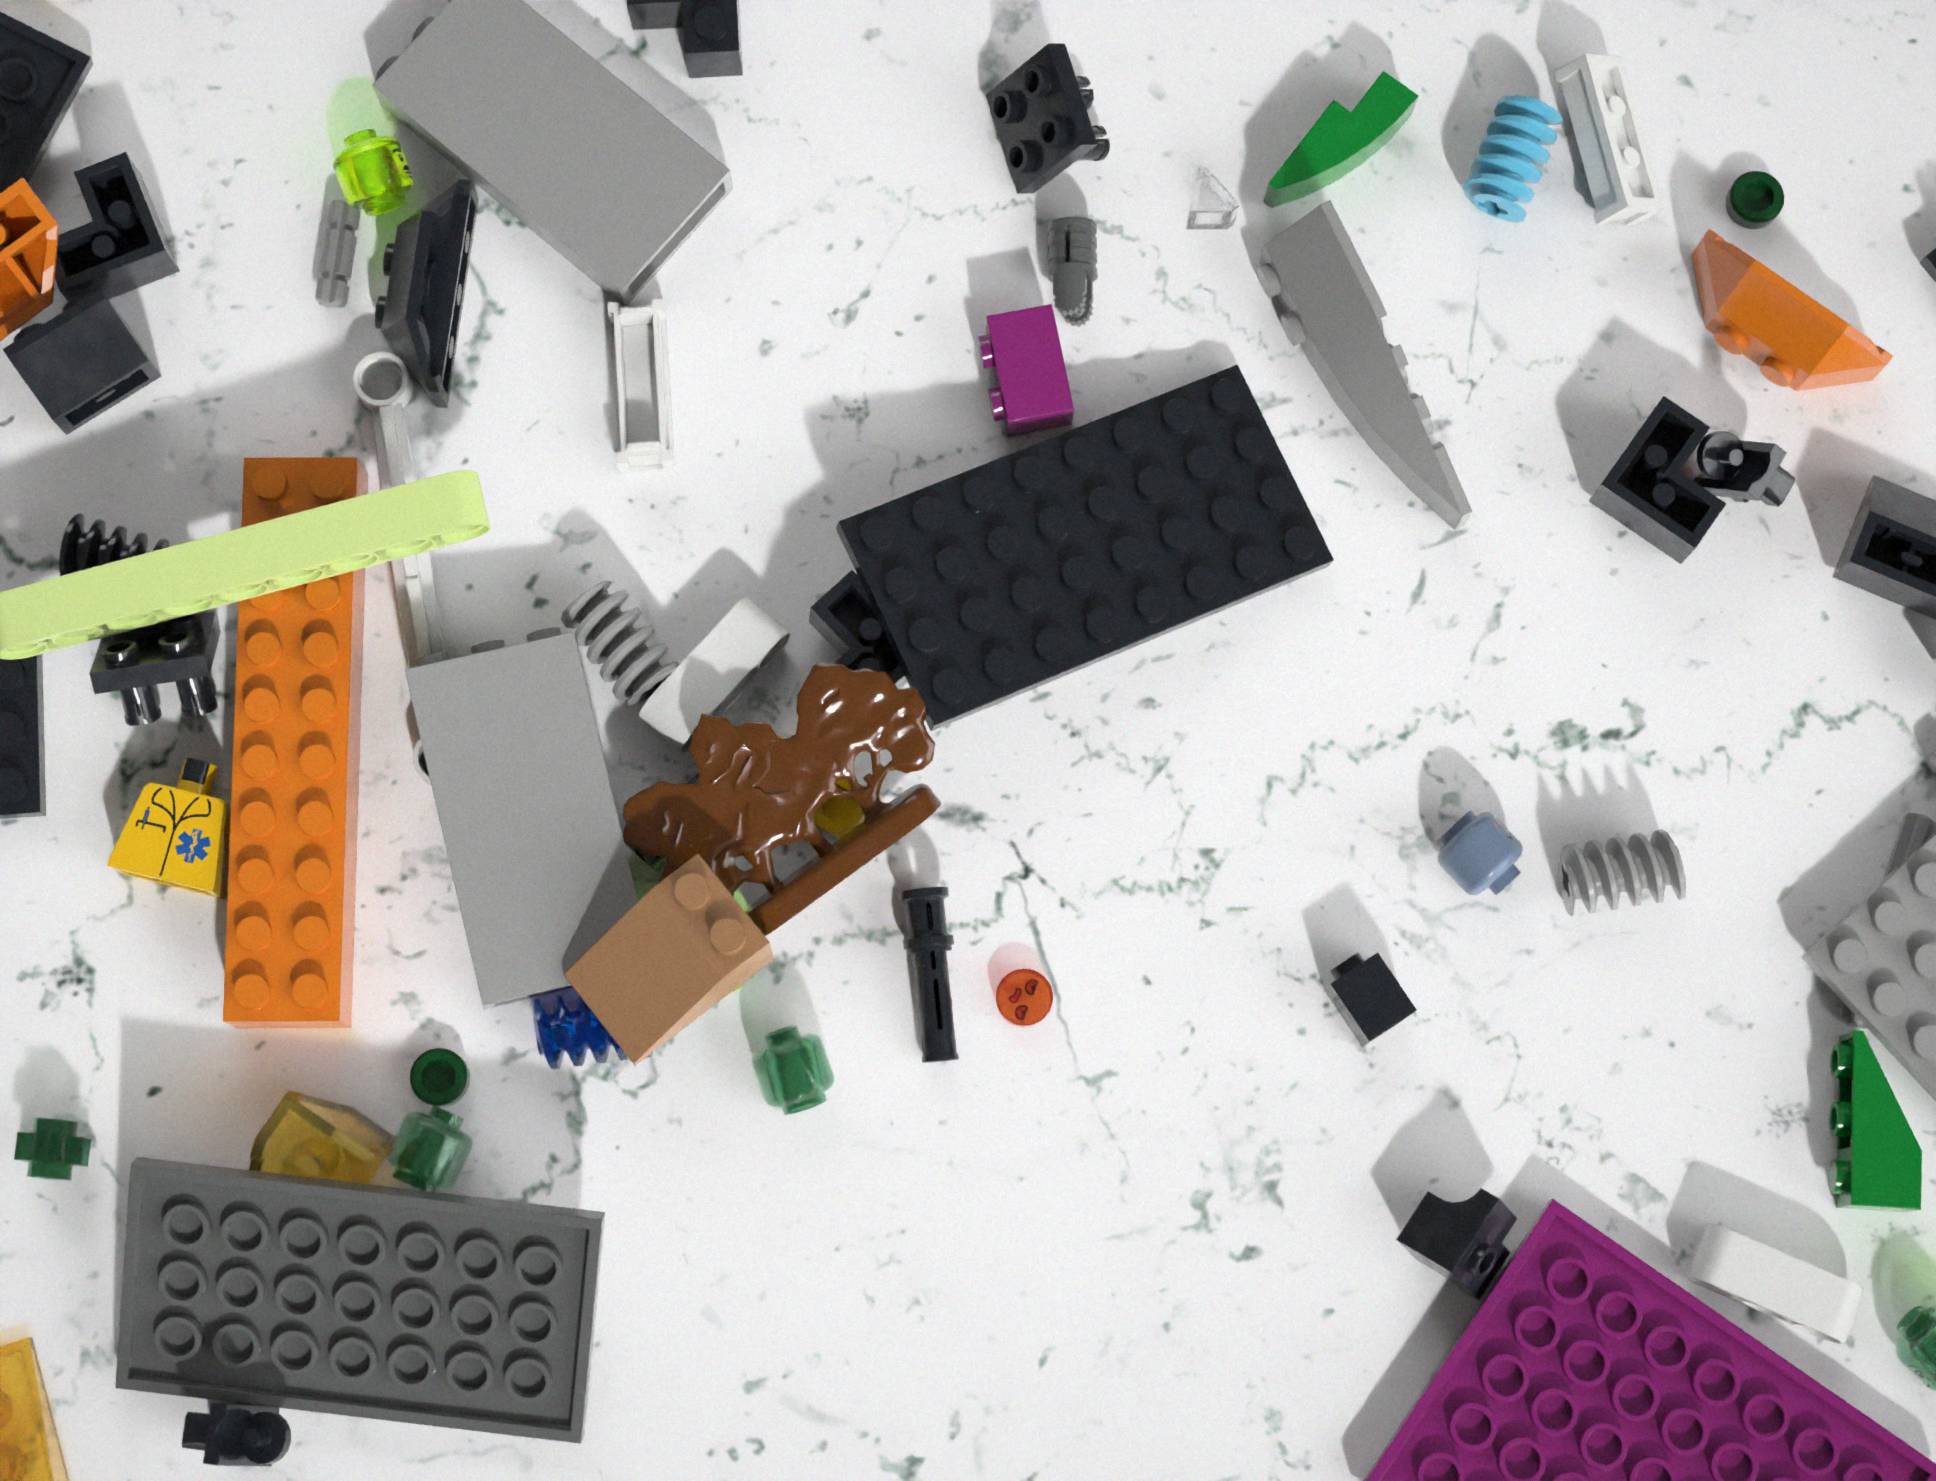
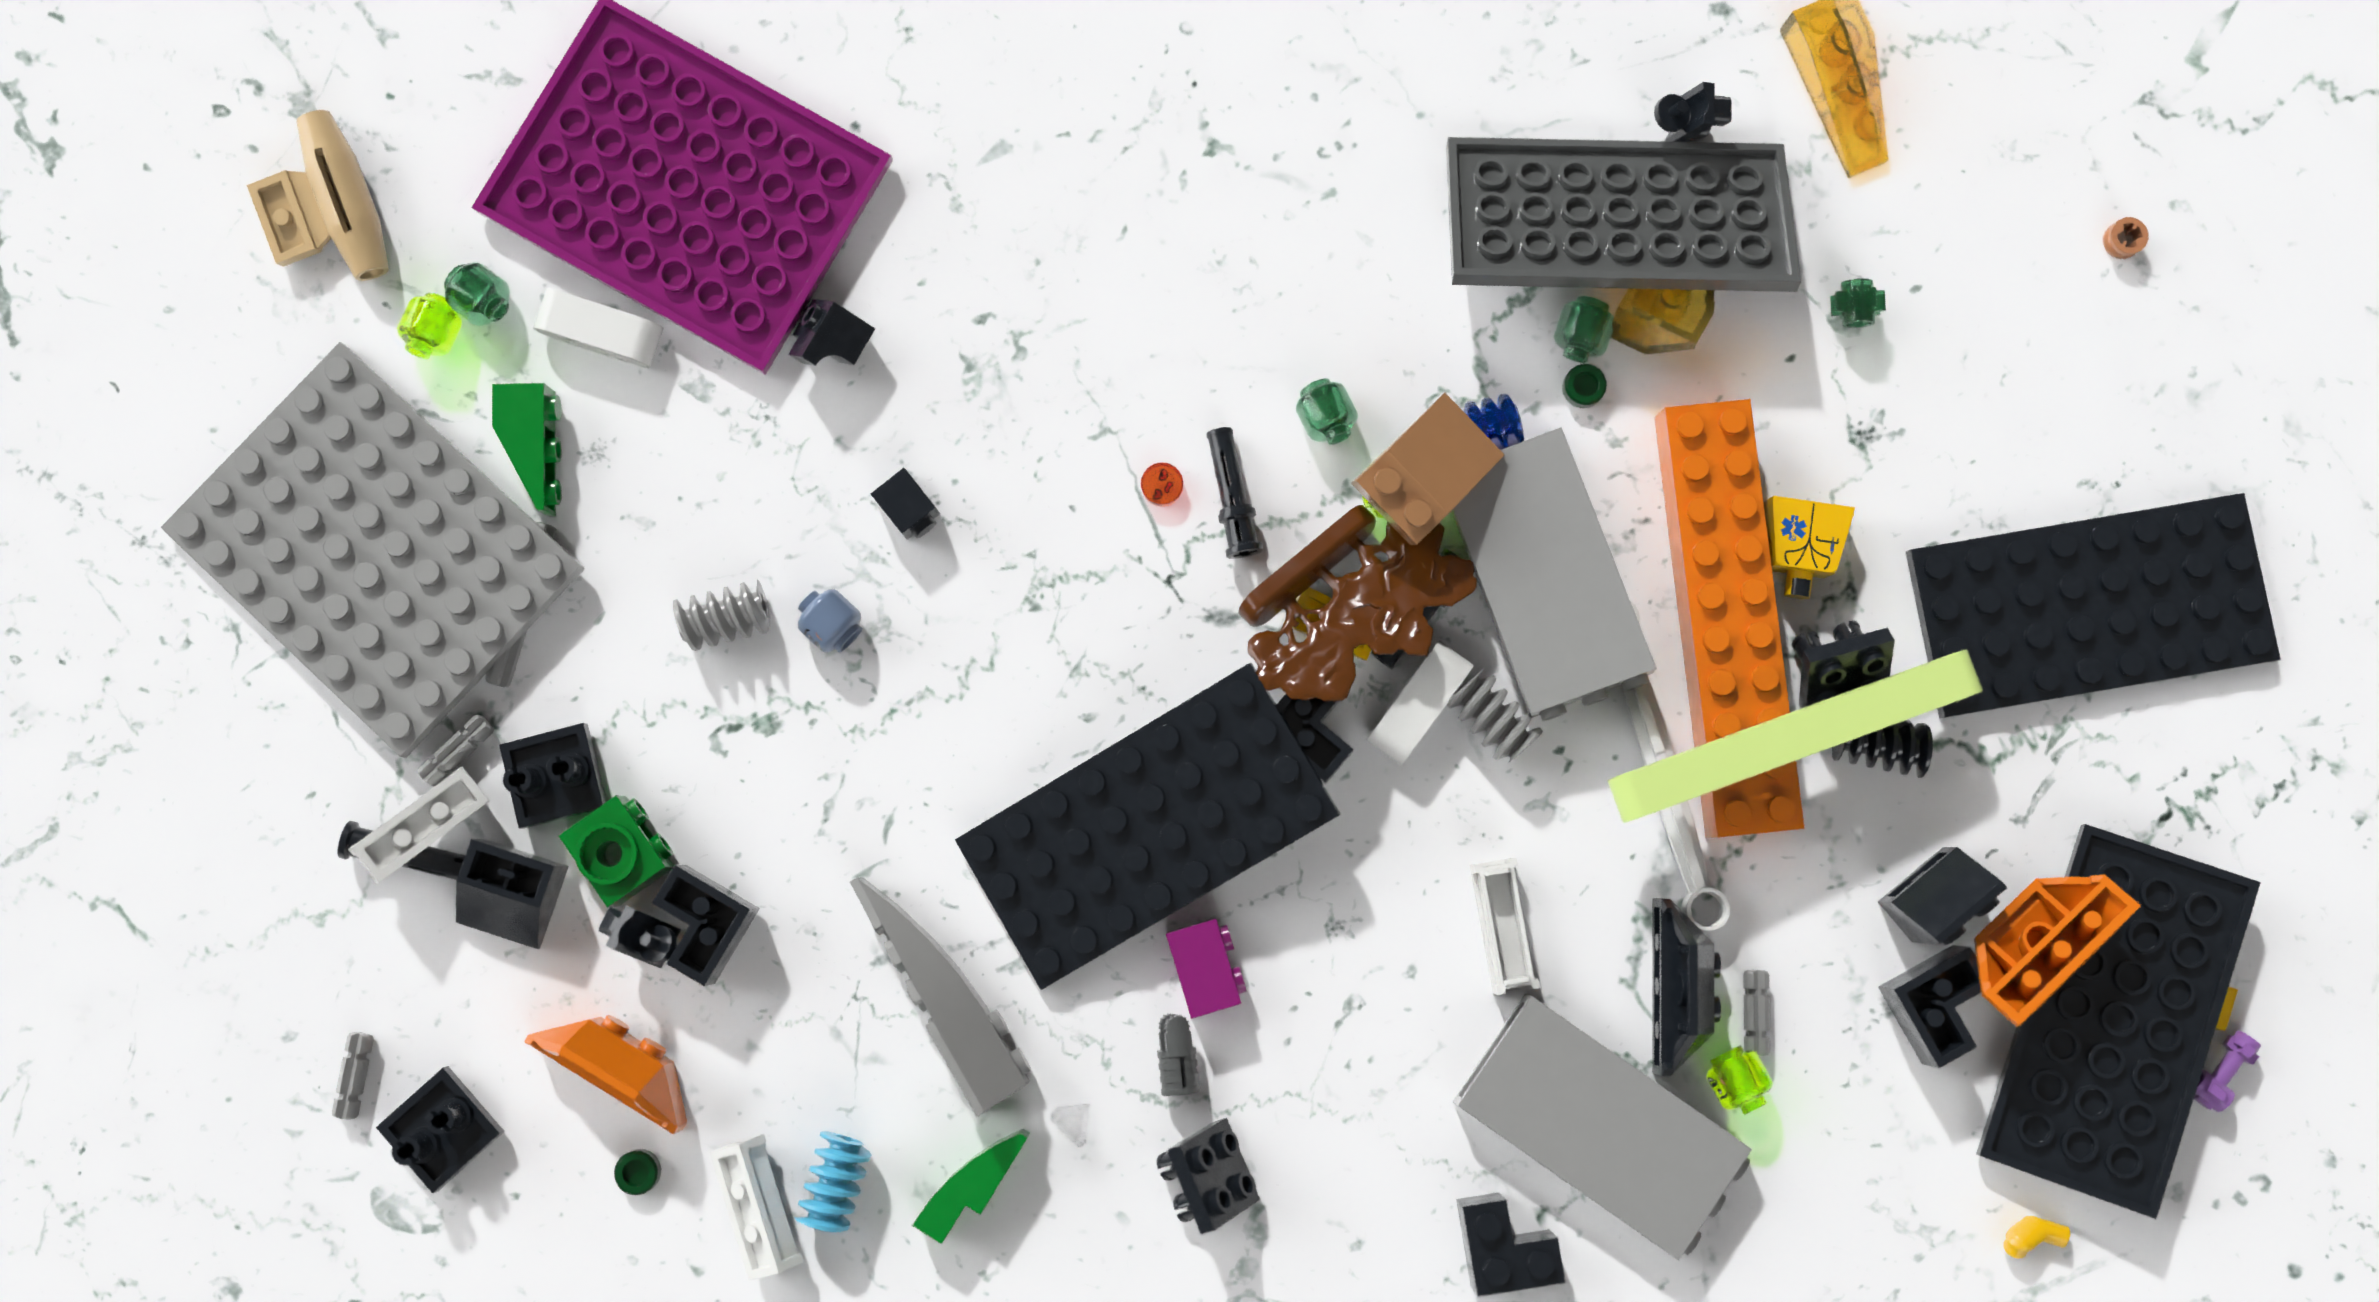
camera: 175 degrees right, 5 degrees up
(1756, 615) = (643, 854): none -> green brick
(1850, 689) = (552, 775): none -> black plate

